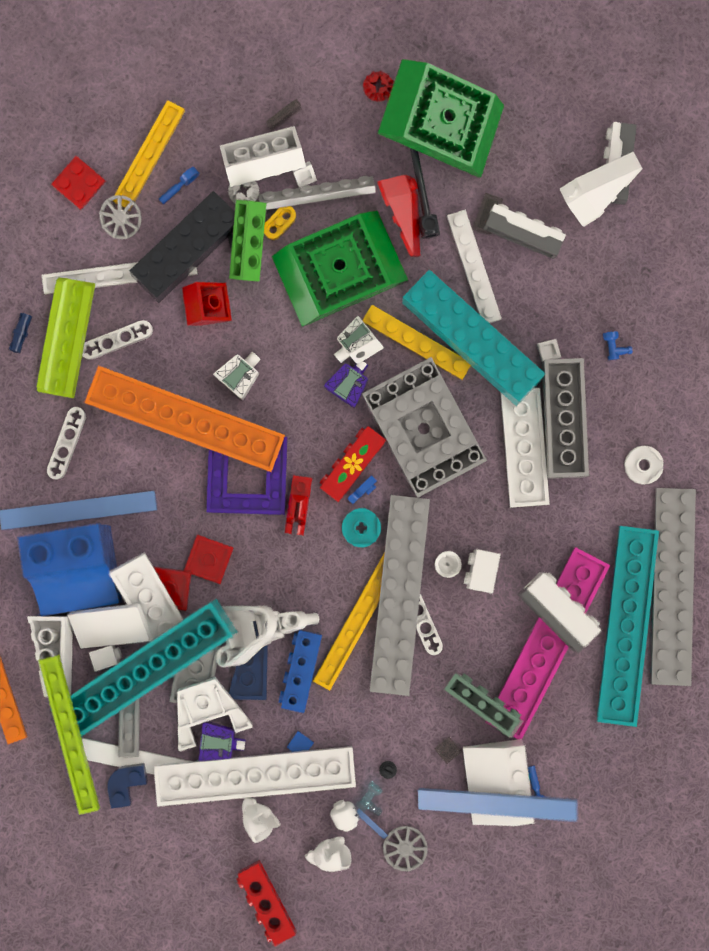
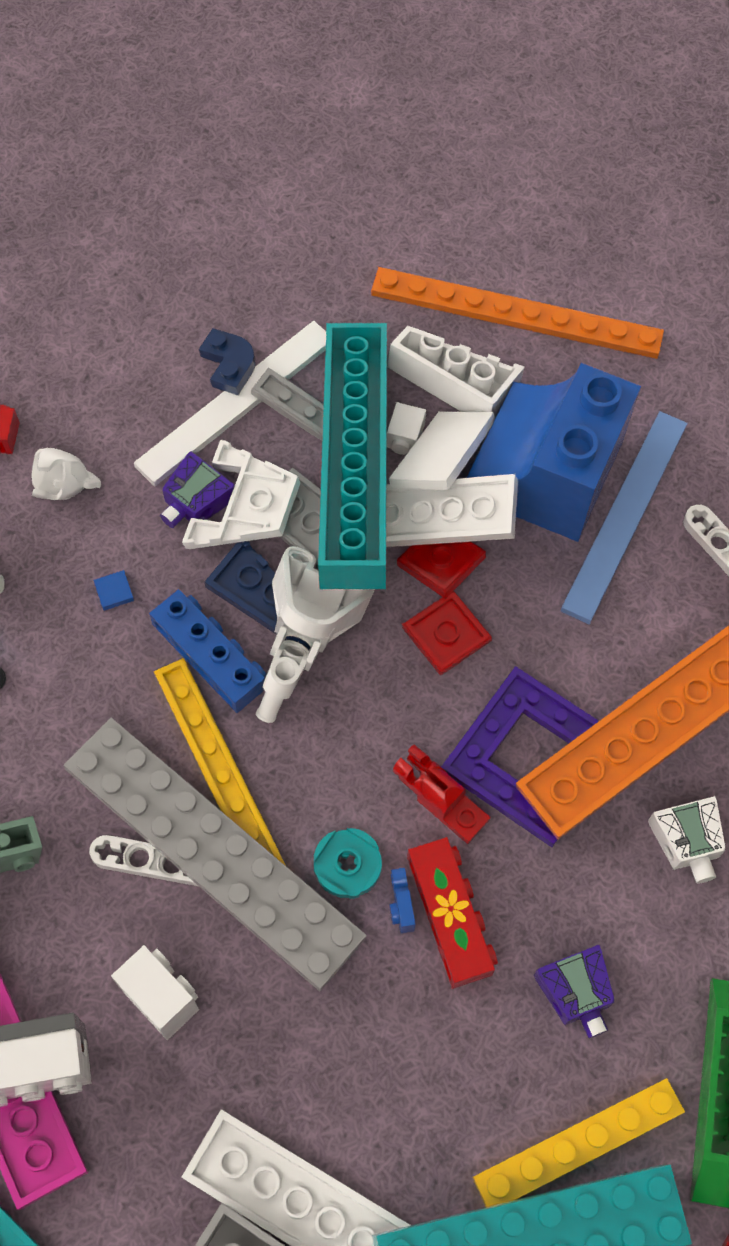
camera: 120 degrees right, 20 degrees down
(69, 734) = (340, 323): lime tile -> none
(254, 776) = (114, 511): white plate -> none
(357, 342) = (637, 1044): white torso -> none
(419, 398) = (490, 1046): light grey slope -> none
(448, 564) = (204, 950): white piece -> none

